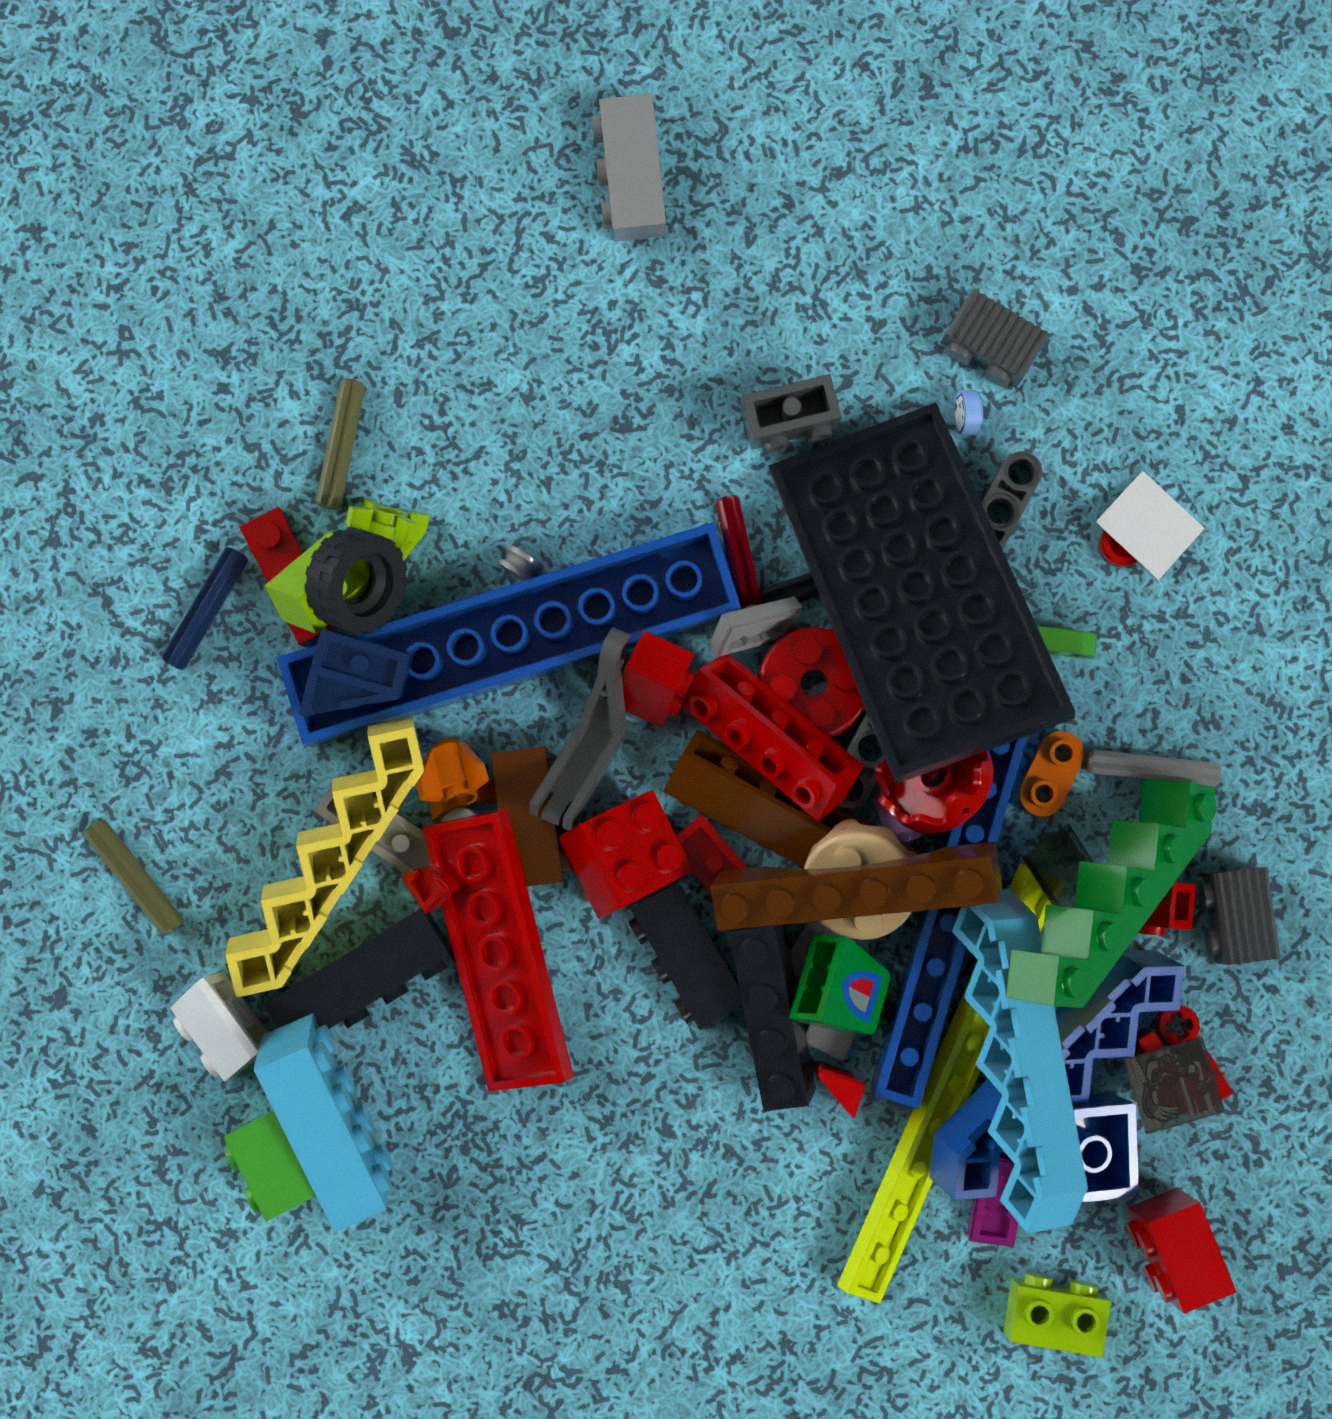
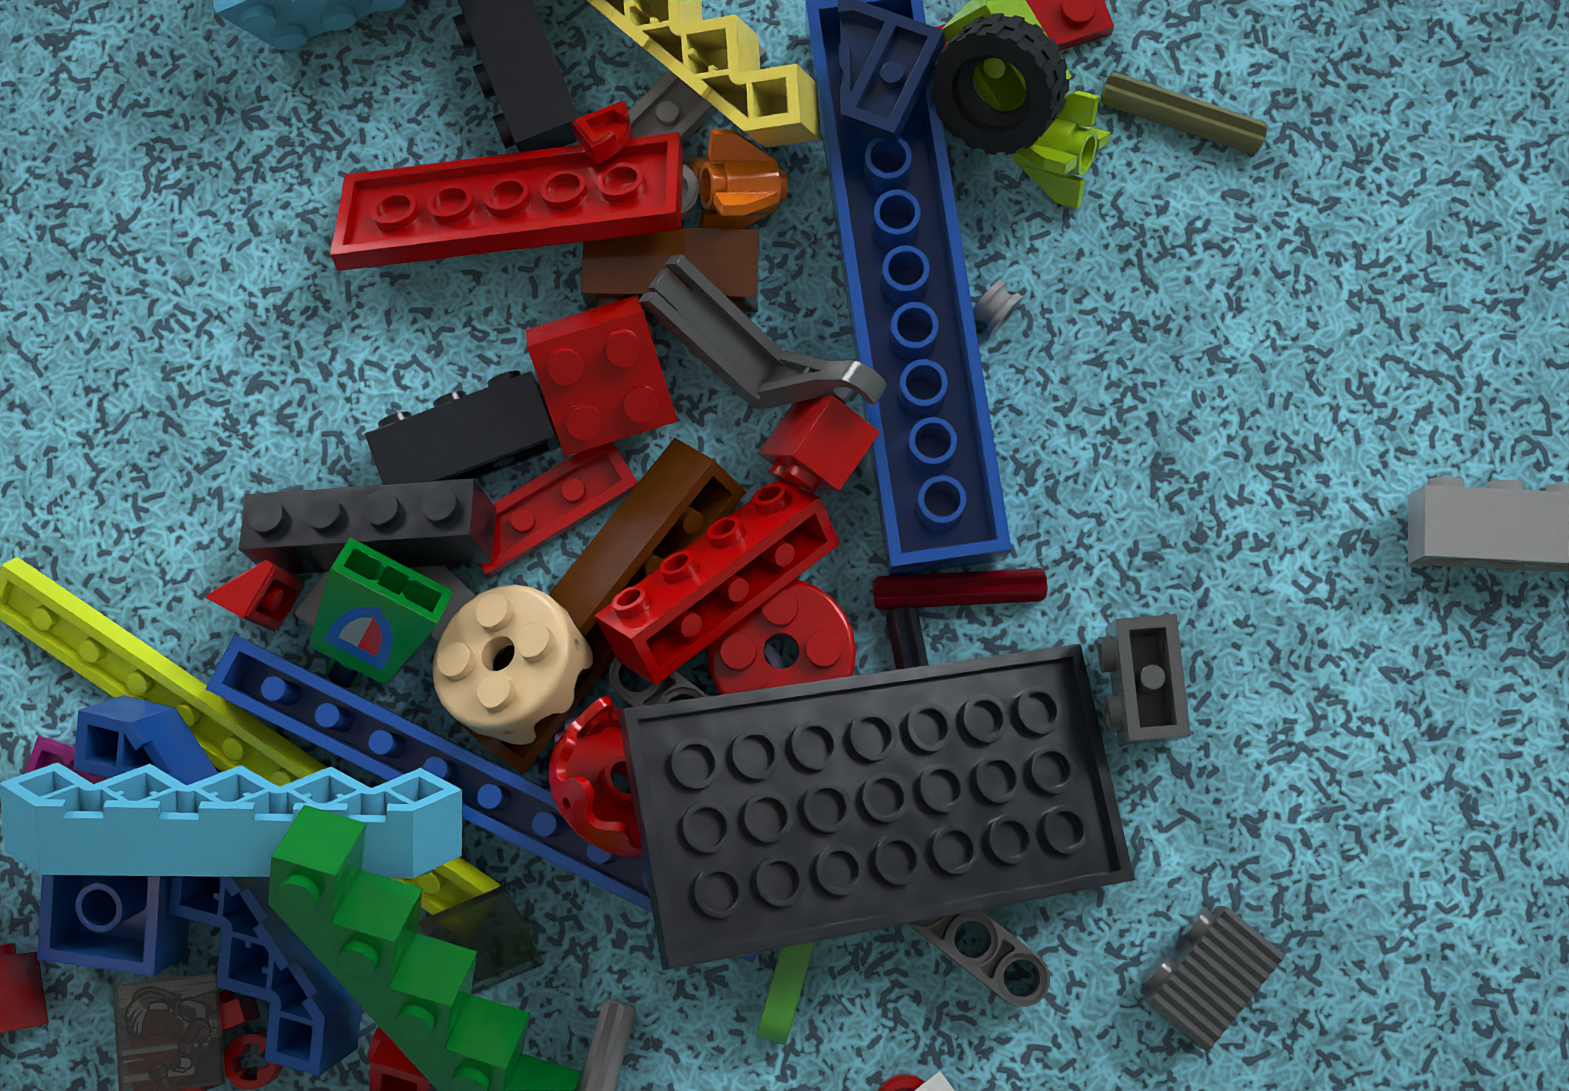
camera: 100 degrees right, 5 degrees down
(754, 626) = (867, 585): light grey plate -> none
(916, 883) = (482, 749): reddish brown arch -> none
(968, 412) = (1115, 924): light blue tile -> none
(1051, 773) = (612, 950): orange plate -> none

